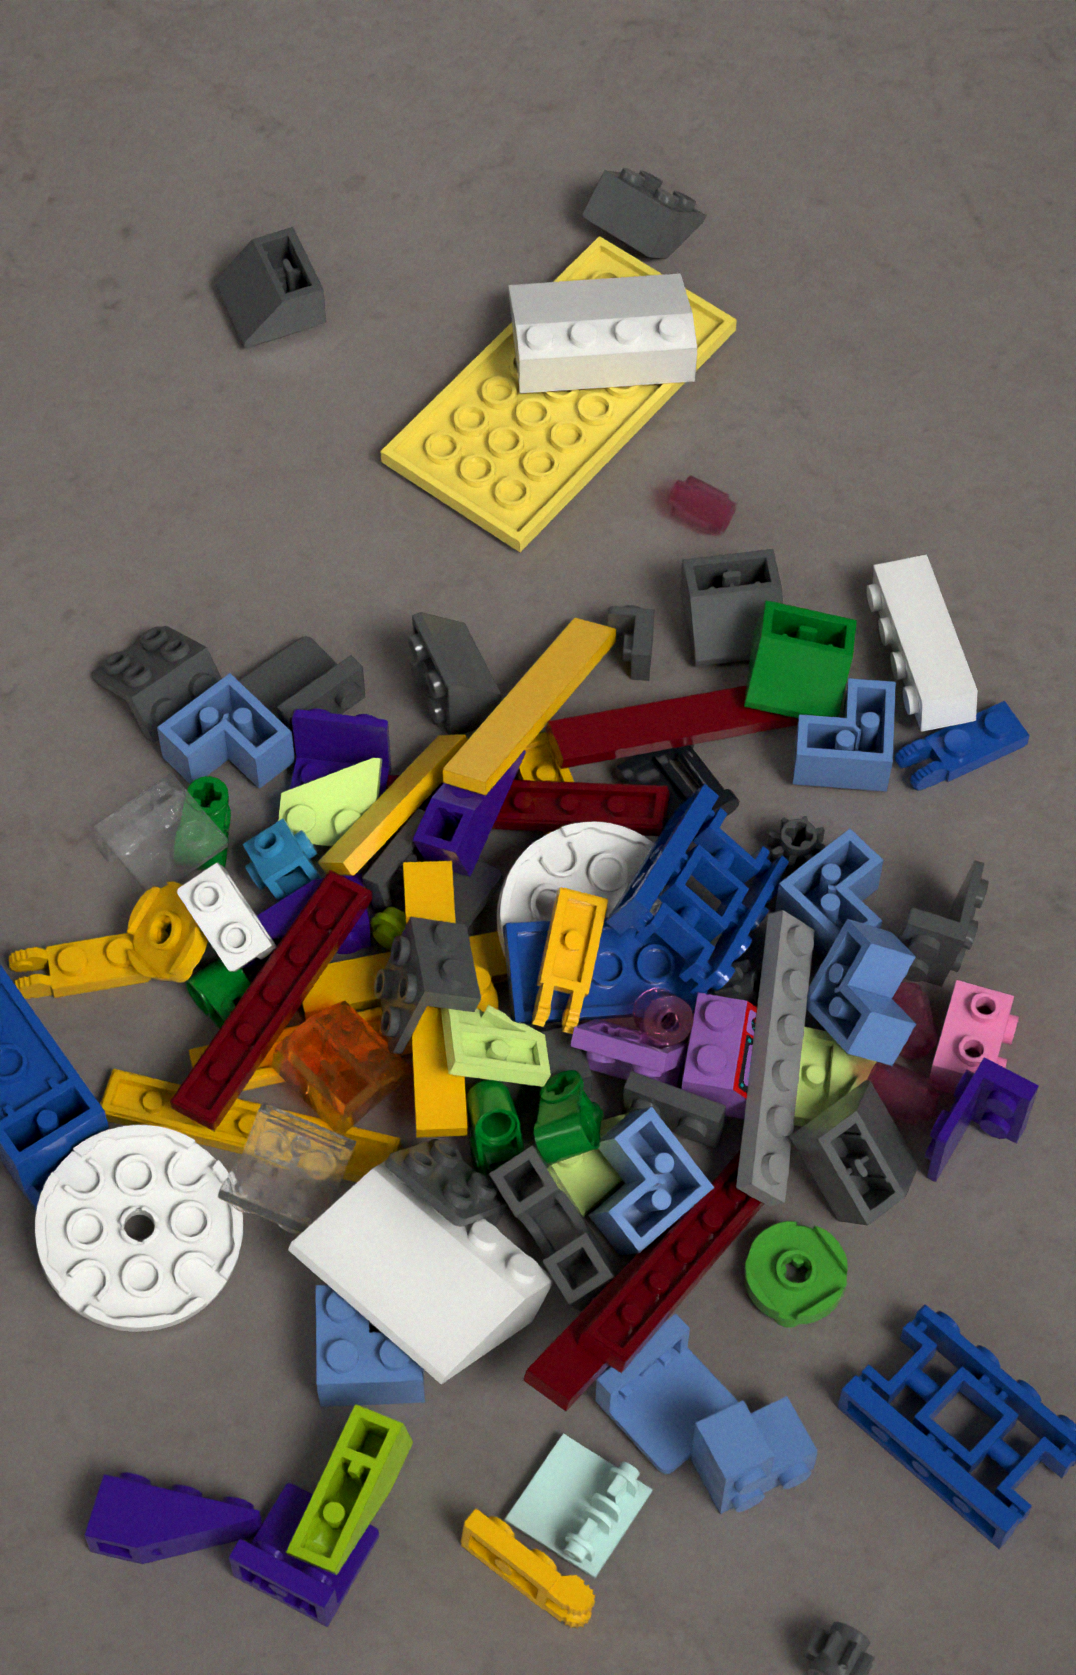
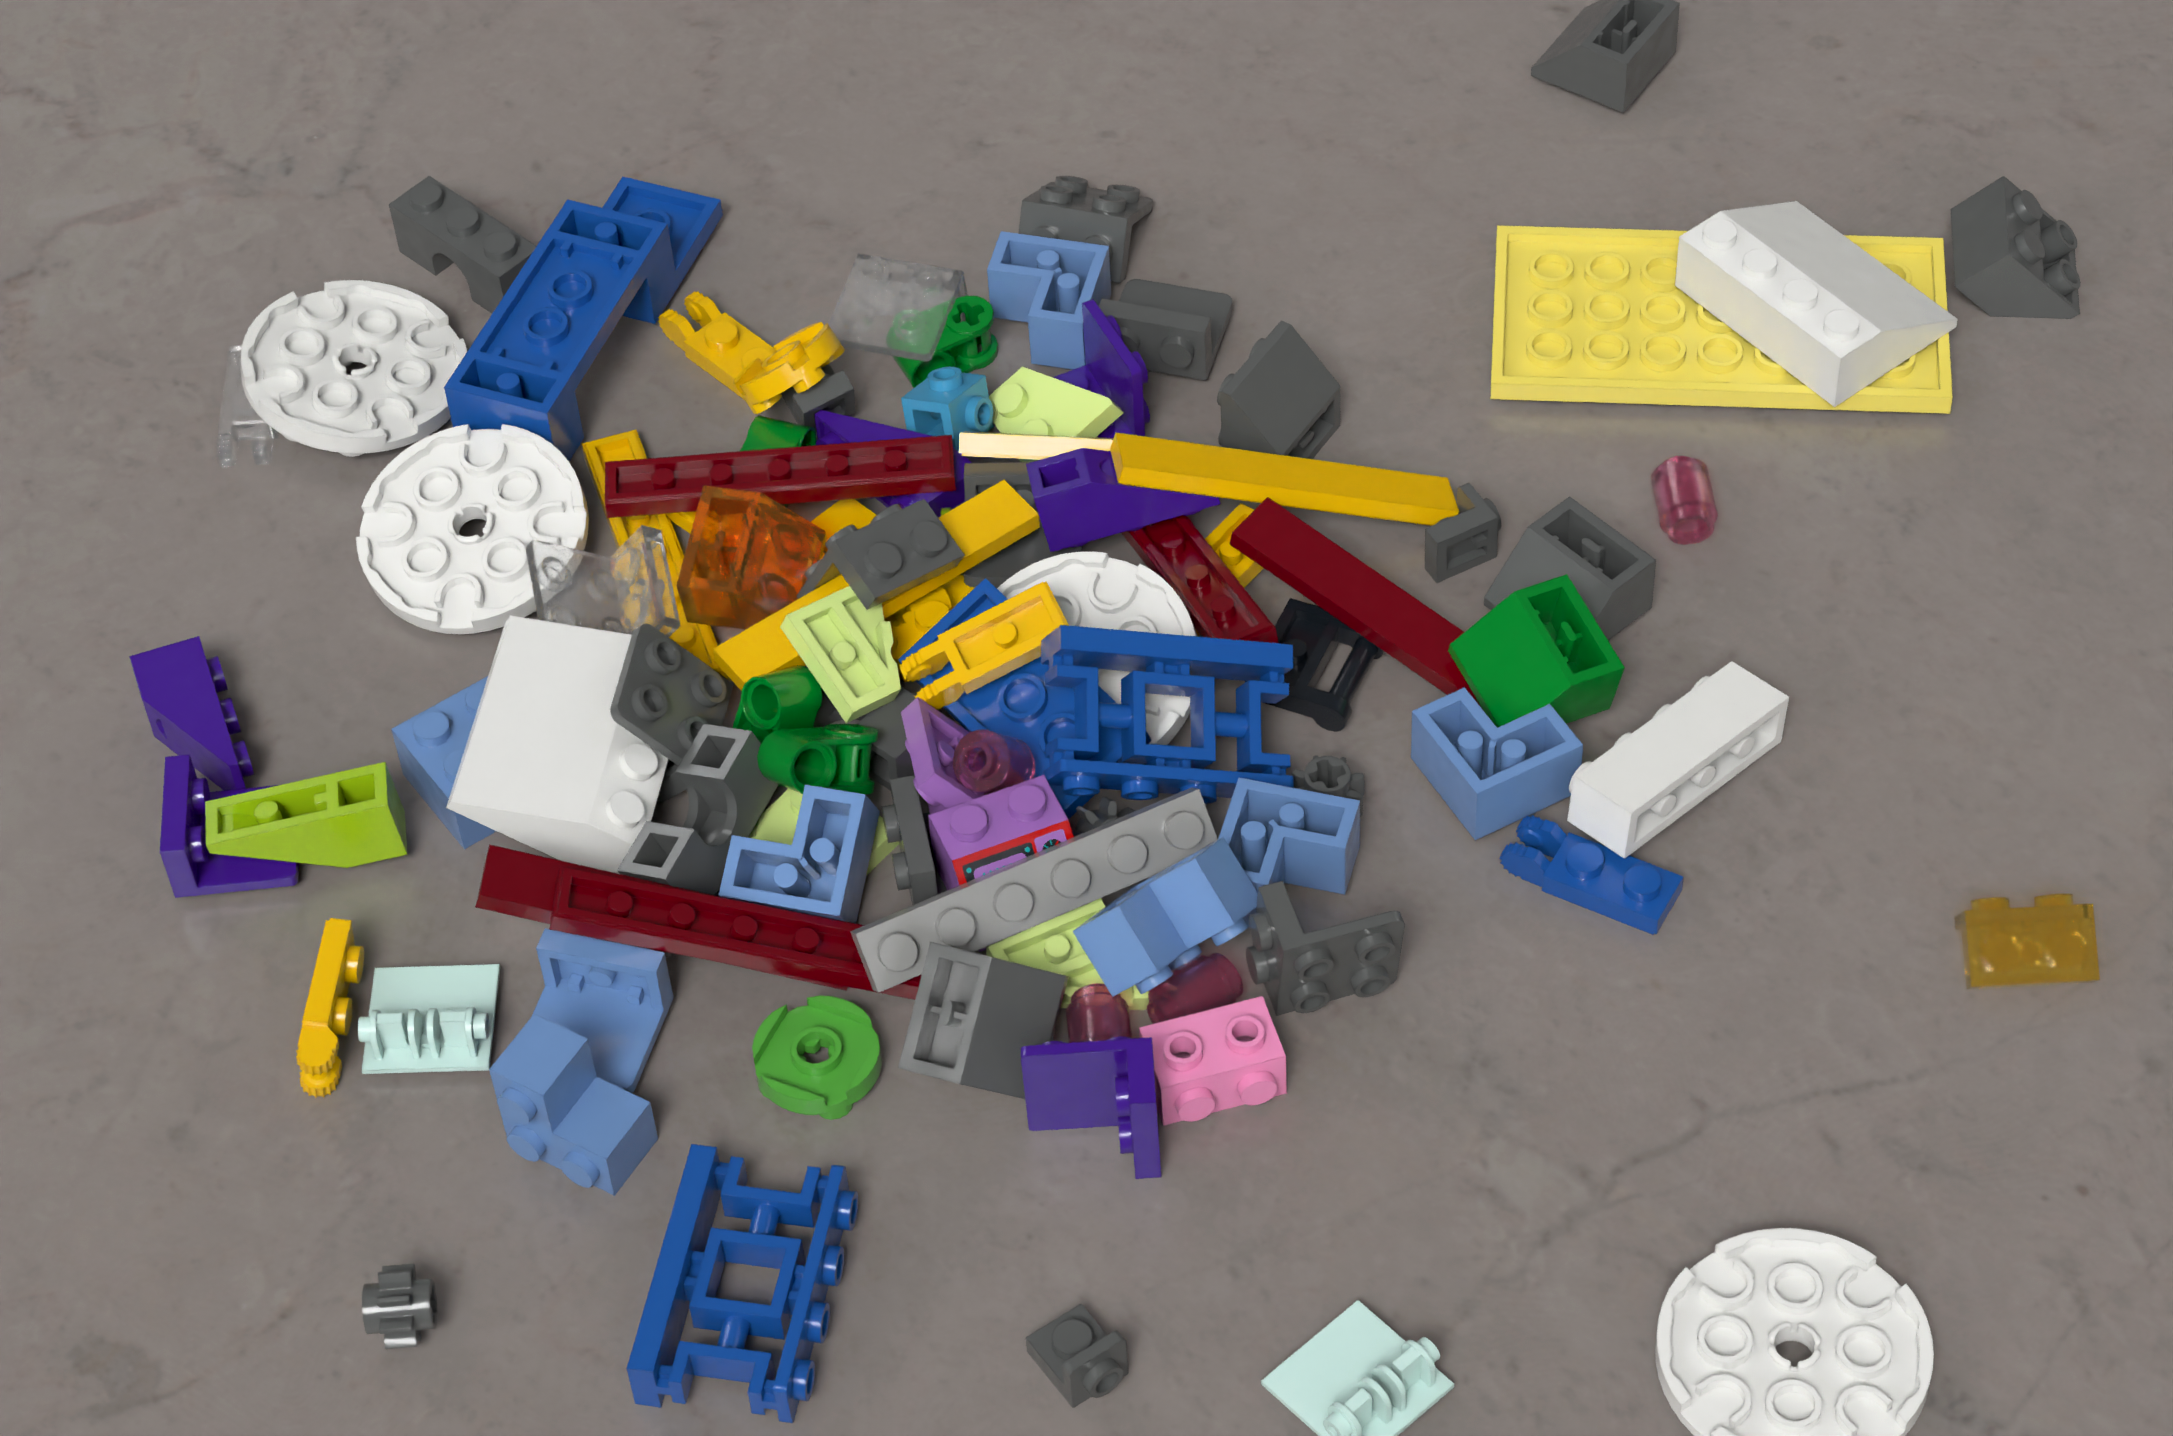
camera: 60 degrees right, 10 degrees down
(226, 918) = (824, 380): white bracket -> none

